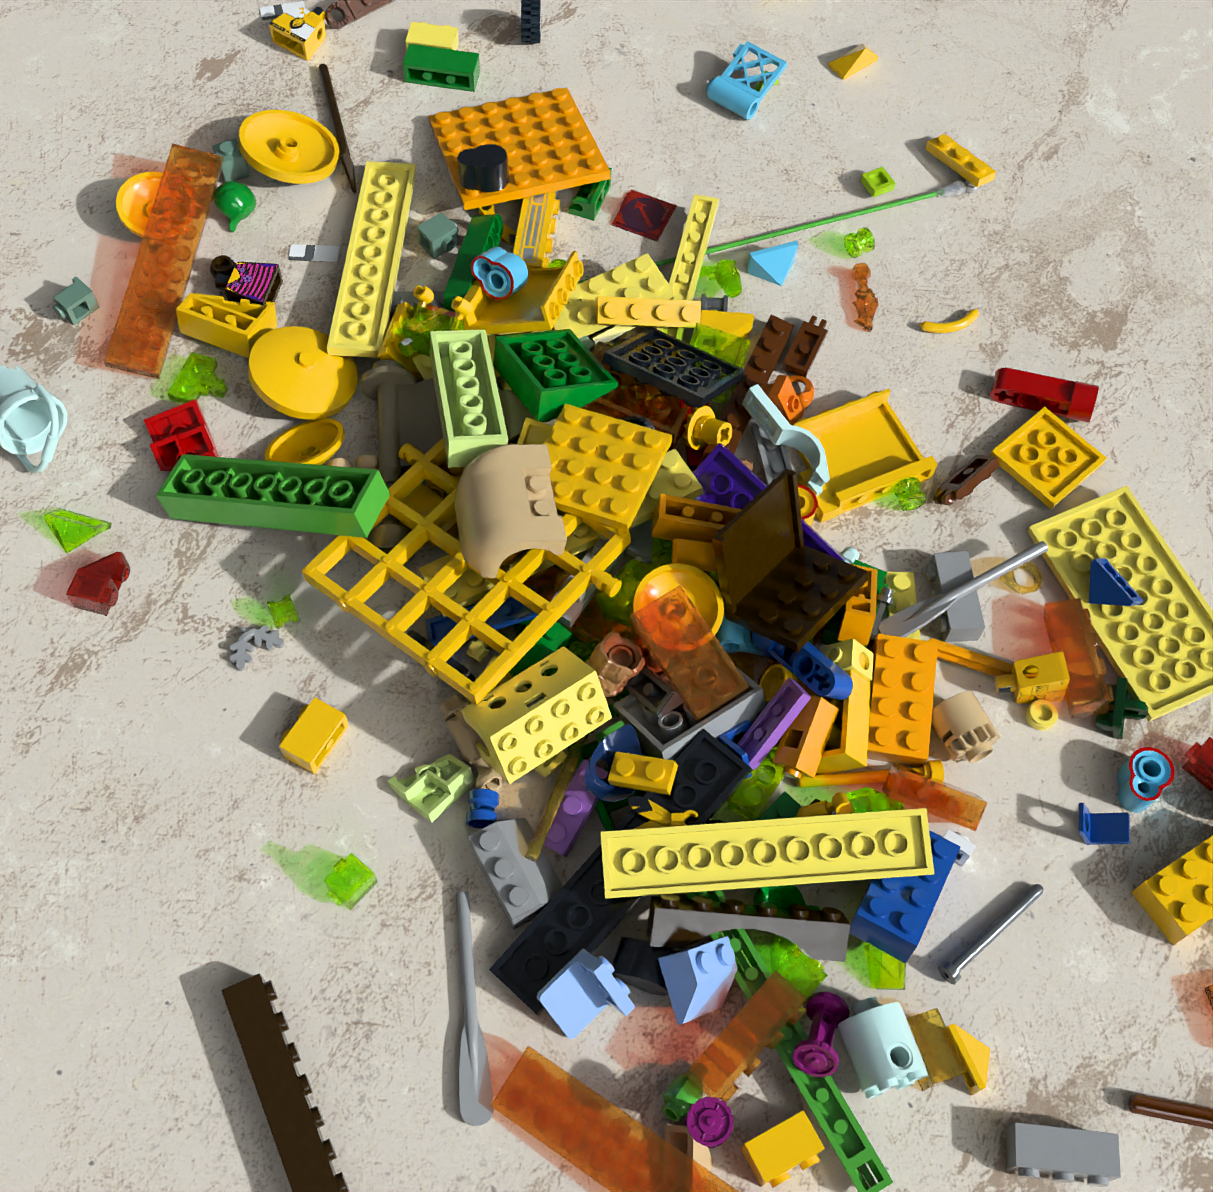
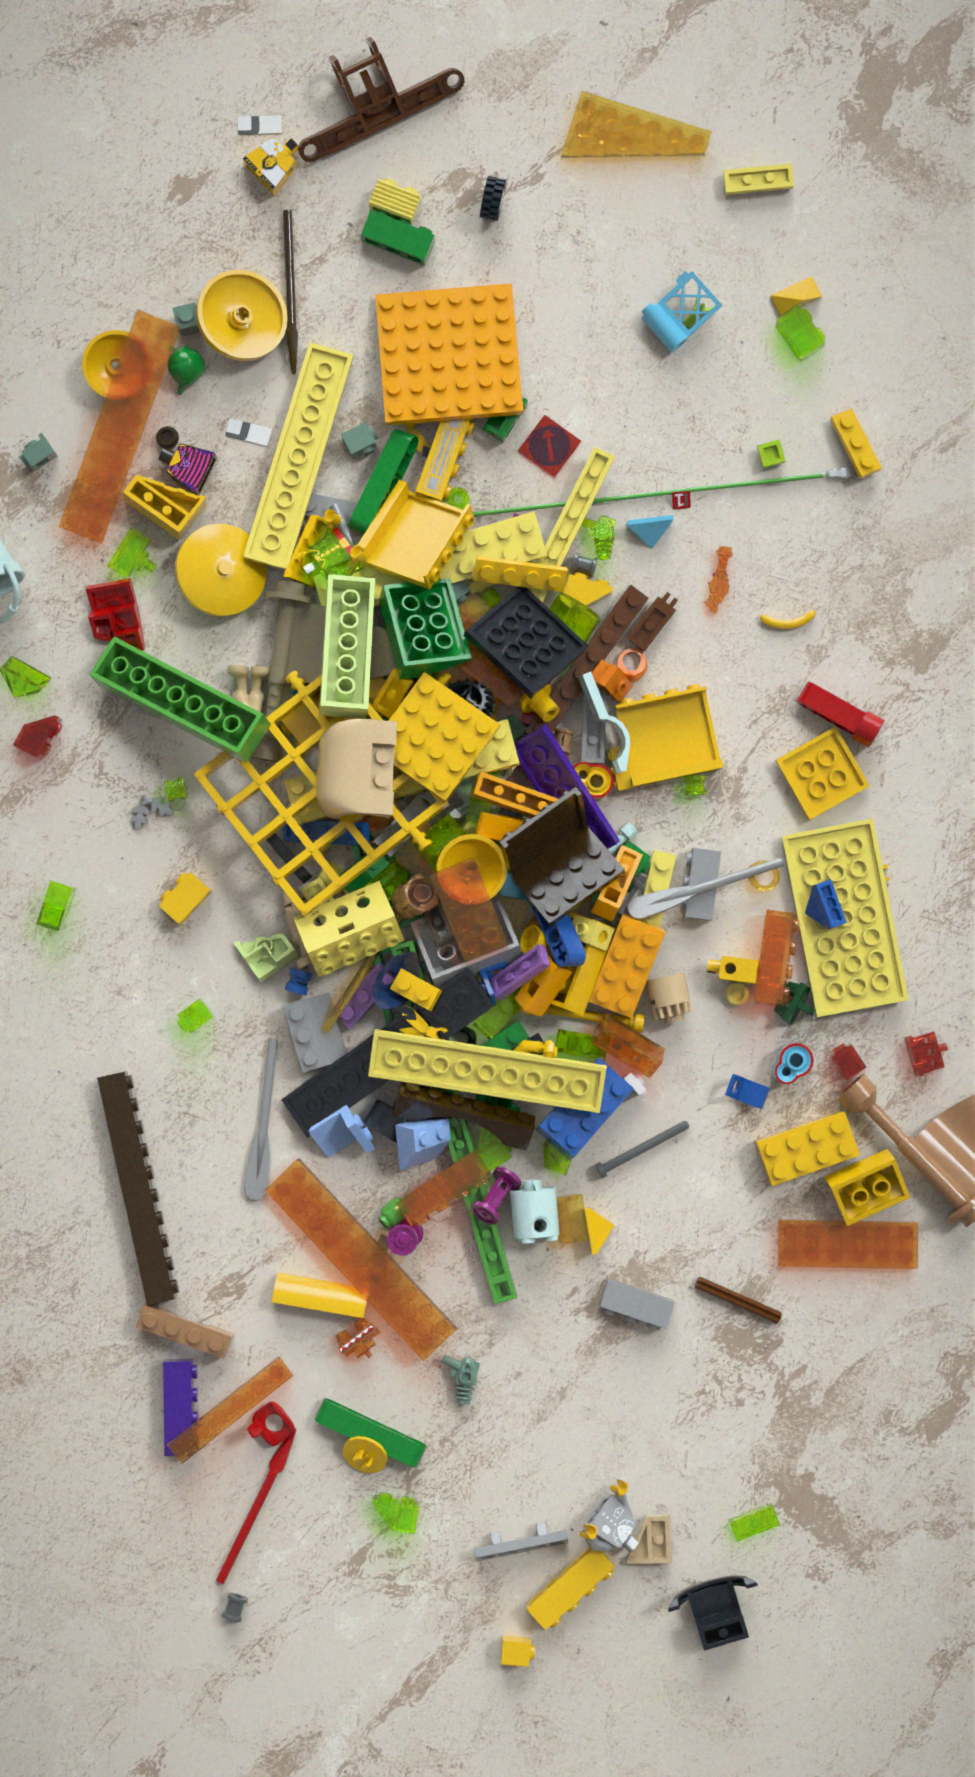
camera: 15 degrees right, 25 degrees up
(141, 772) = (56, 905): none -> clear neon green slope
(307, 442) = (212, 643): yellow dish -> none
(484, 168) = (408, 396): black piece -> none
(499, 273) = (400, 513): medium azure piece -> none
(782, 1149) = (451, 1260): yellow brick -> none
(800, 234) = (681, 500): none -> red sticker
(859, 242) = (732, 521): clear neon green wheel -> none
(869, 83) = (800, 333): none -> clear neon green brick
(966, 479) = (745, 781): reddish brown hinge -> none
(972, 659) = (695, 937): light orange axle -> none

